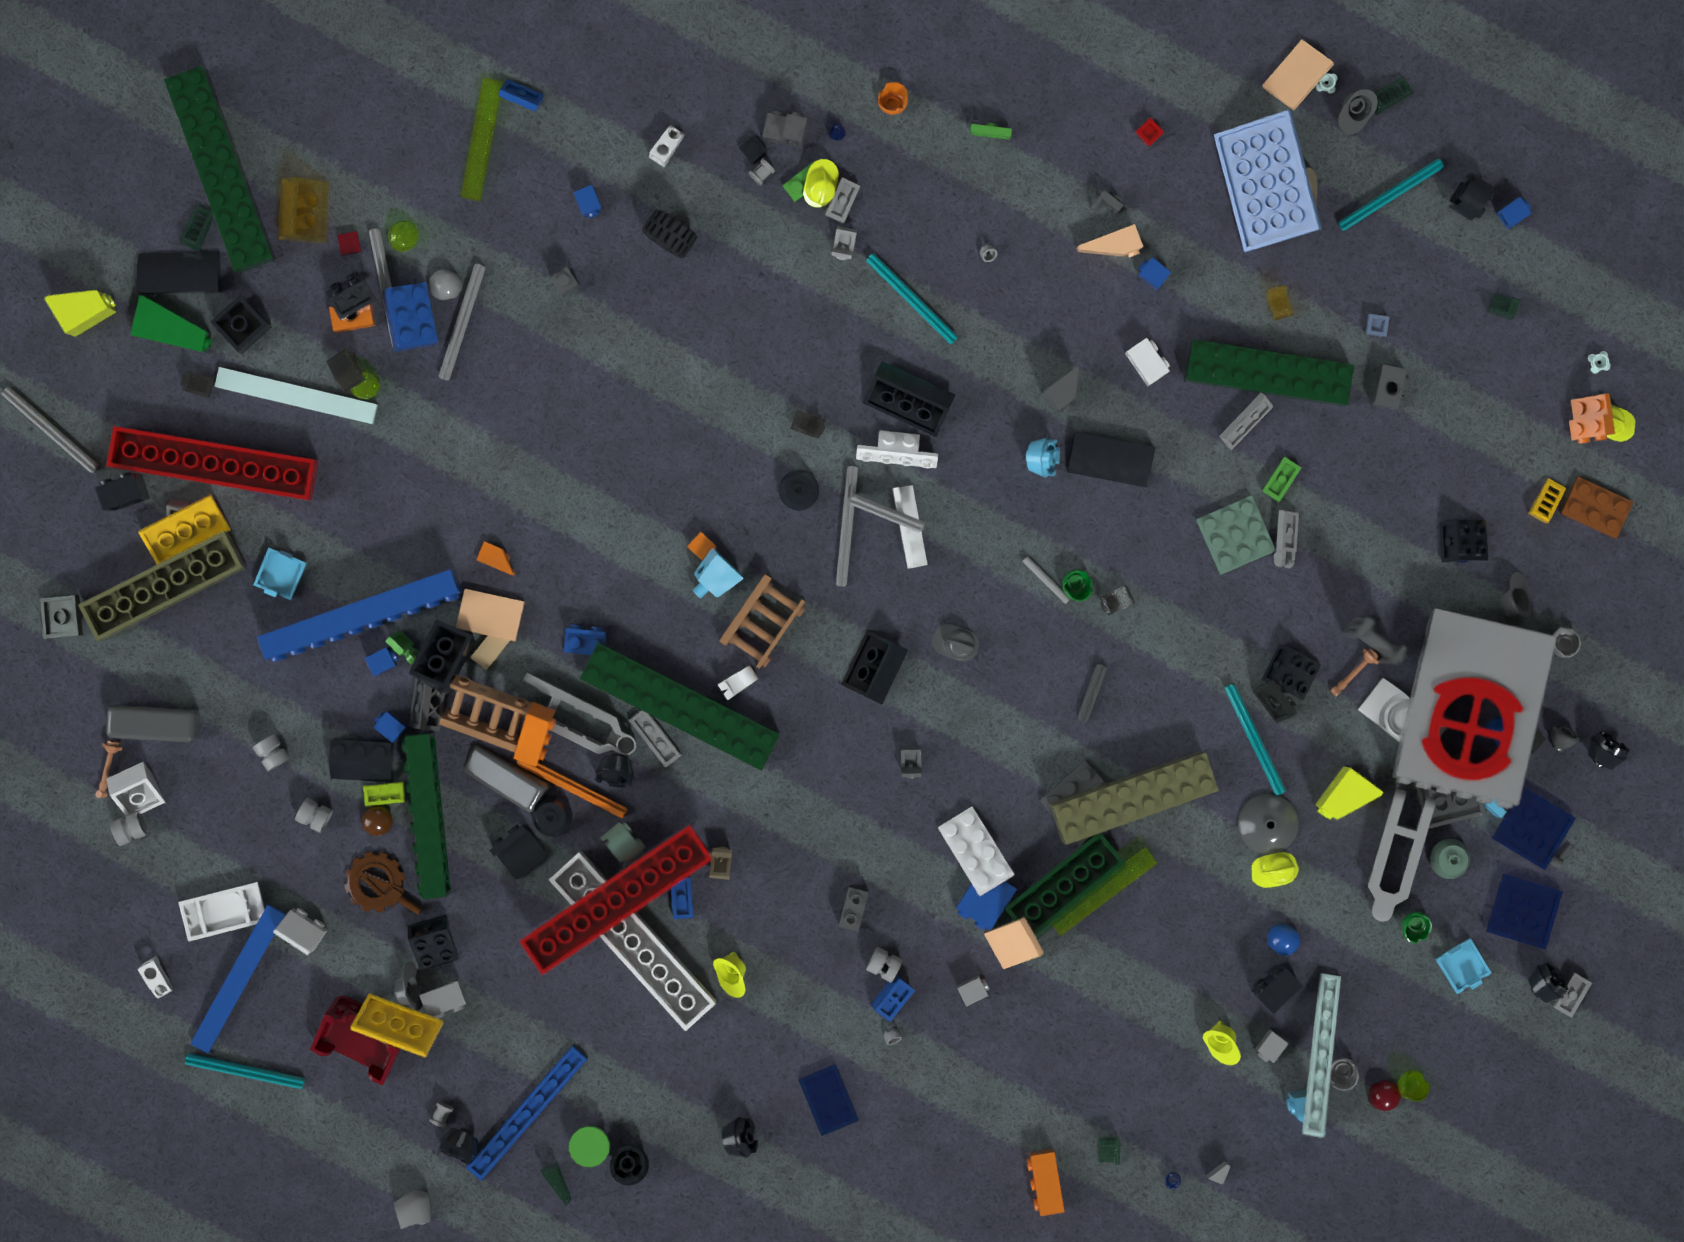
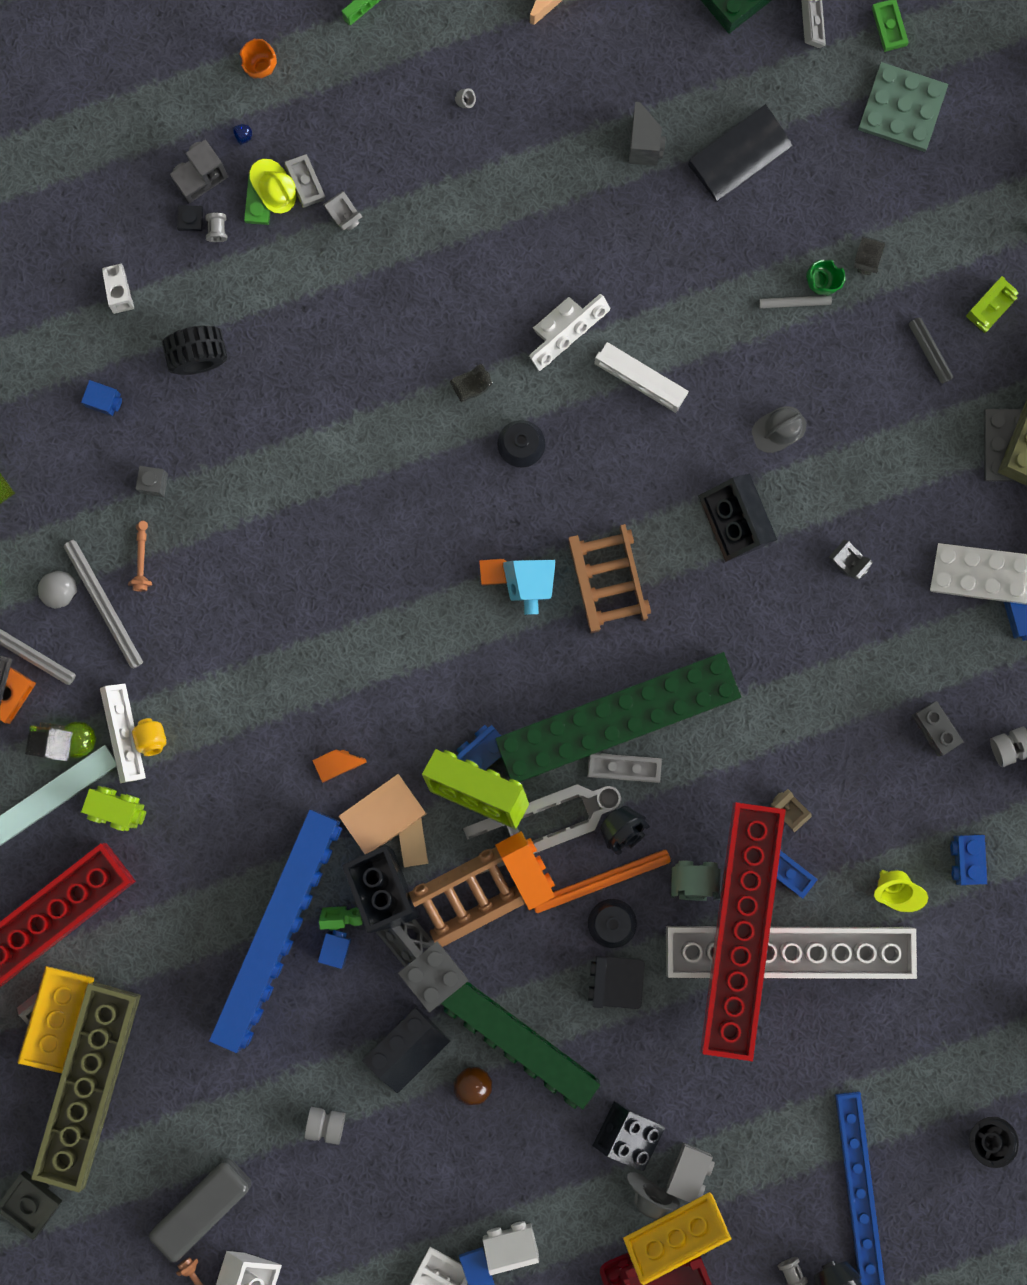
camera: 45 degrees left, 5 degrees down
(280, 574) = (173, 969): medium azure piece -> none
(316, 816) = (416, 1139): light grey wheel -> none
(343, 449) = (122, 811): none -> lime brick
(384, 793) = (455, 1056): lime plate -> none
(389, 726) = (398, 996): blue brick -> none
(389, 891) = (546, 1134): reddish brown bar -> none
(393, 409) = (120, 728): none -> white plate
(406, 427) = (149, 737): none -> yellow head
(410, 317) = (55, 643): blue brick -> none
(418, 737) = (433, 976): none -> dark grey plate
(496, 332) = (140, 582): none -> nougat piece
(506, 778) = (540, 933): piece -> none
(556, 658) = (476, 788): none -> lime brick
(556, 1180) = (944, 1222): clear green slope -> none
(589, 1146) = (943, 1163): bright green piece -> none
(738, 682) = (642, 649): white leg -> none
(791, 1000) = (969, 860): none -> blue bracket
(846, 528) = (591, 431): light grey axle -> none
(887, 513) = (613, 381): light grey axle -> none
(891, 278) = (444, 198): teal axle -> none
(909, 398) = (529, 277): black slope -> none
(1043, 456) = (685, 206): medium azure cone -> none
(1147, 361) = (684, 47): white brick -> none
(1156, 705) = (993, 304): none -> lime hinge
(1286, 538) = (946, 65): light grey hinge -> none

